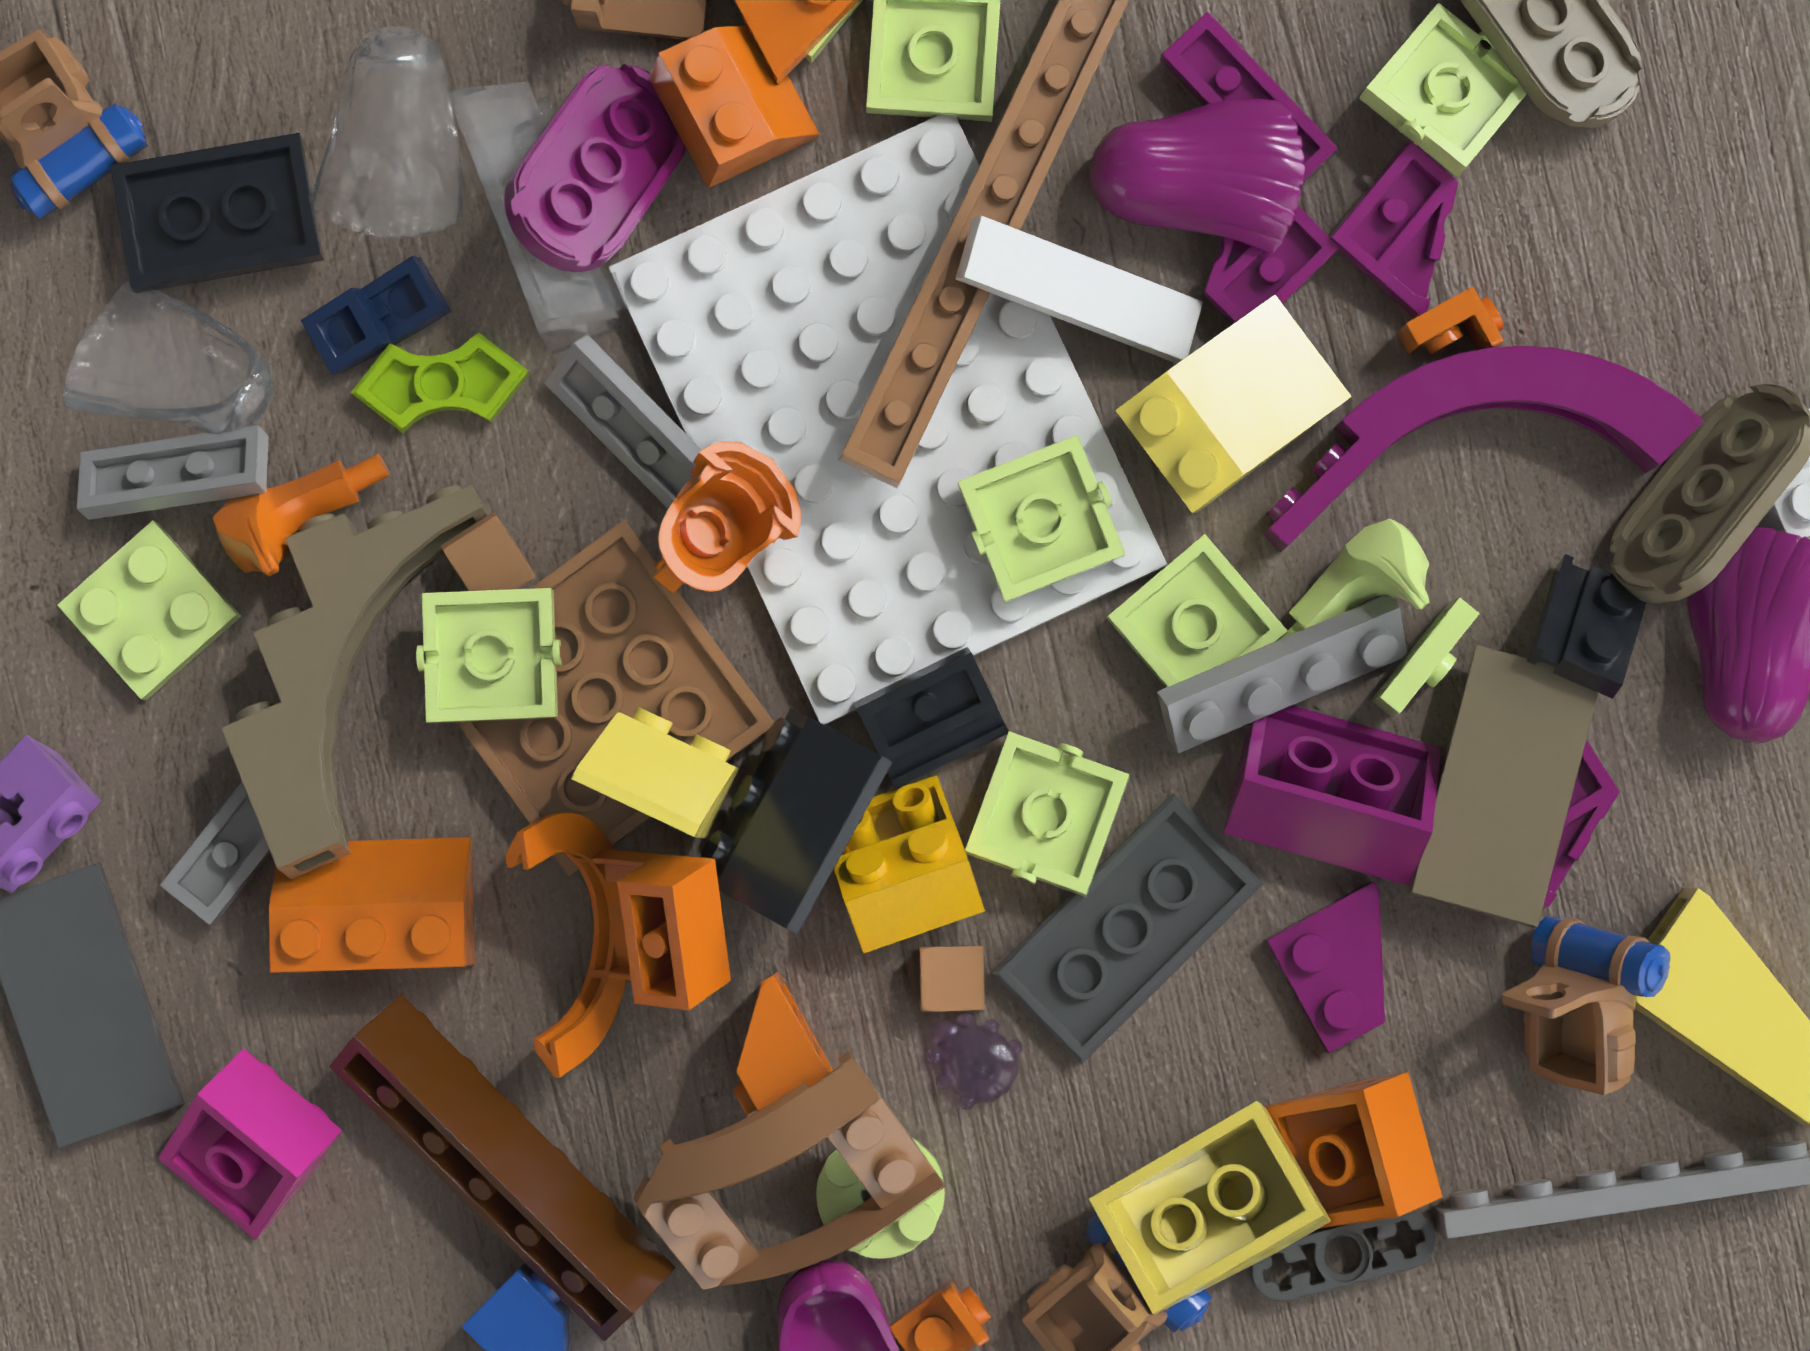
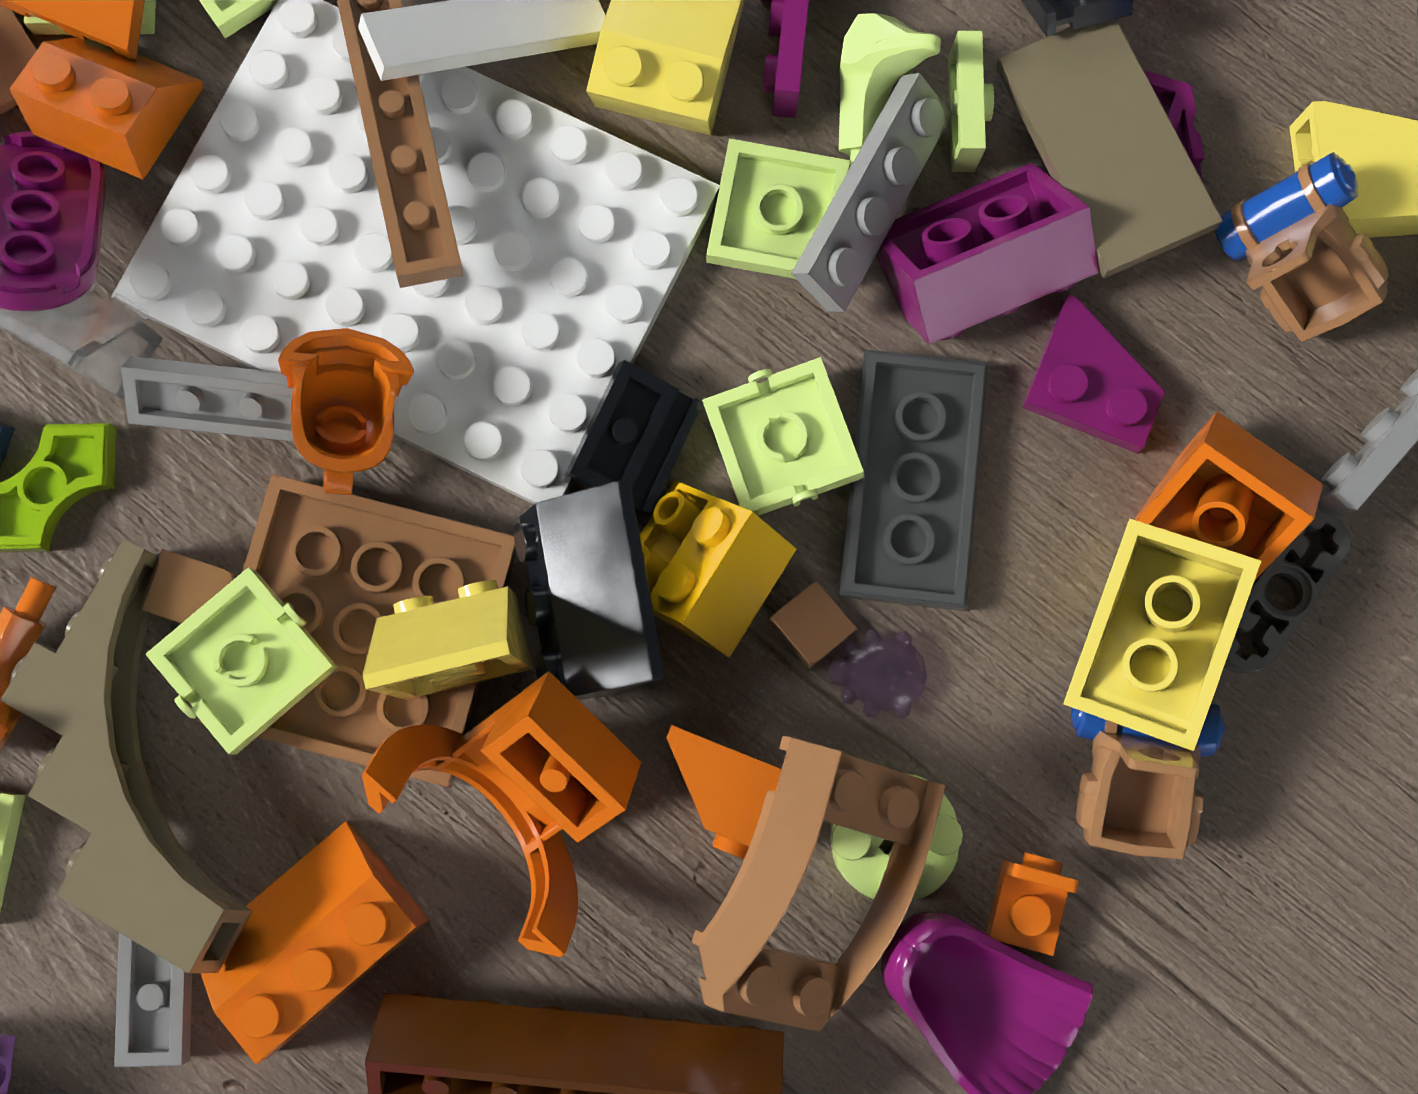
camera: 40 degrees left, 5 degrees down
(1041, 518) = (595, 216): yellowish green plate -> none

